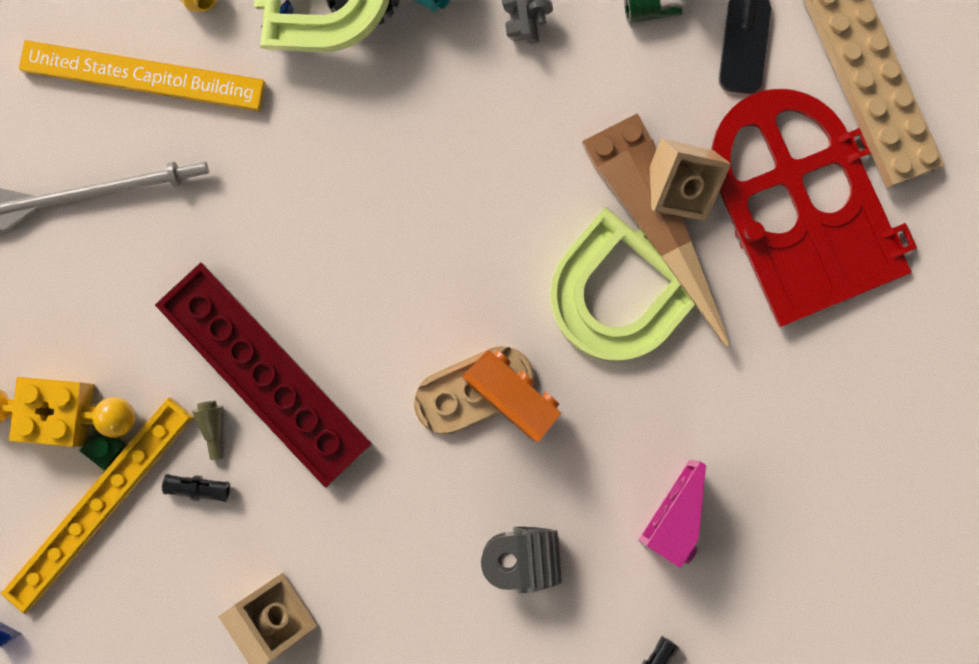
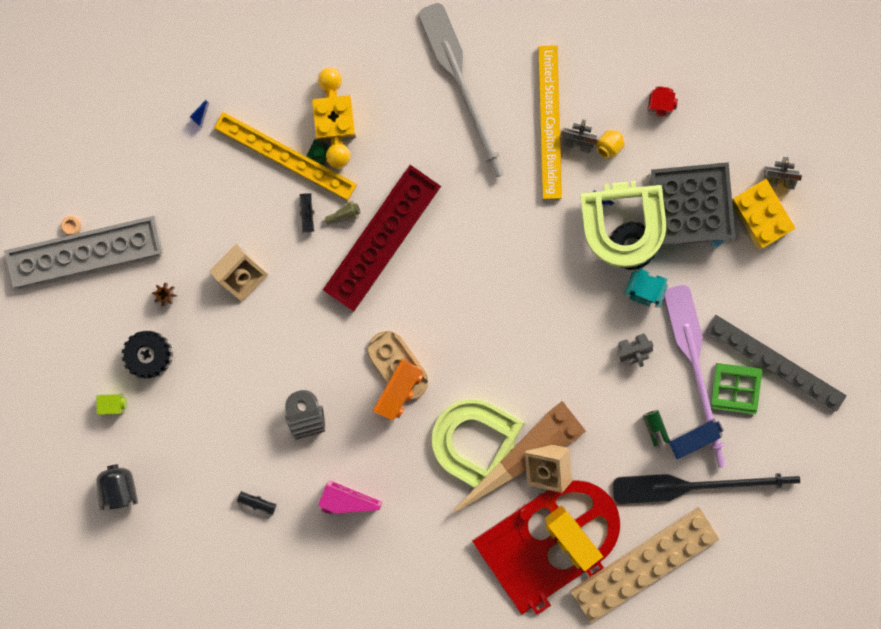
camera: 80 degrees right, 5 degrees up
(169, 46) = (570, 135): none -> dark grey hips
(808, 161) = (572, 538): none -> yellow brick

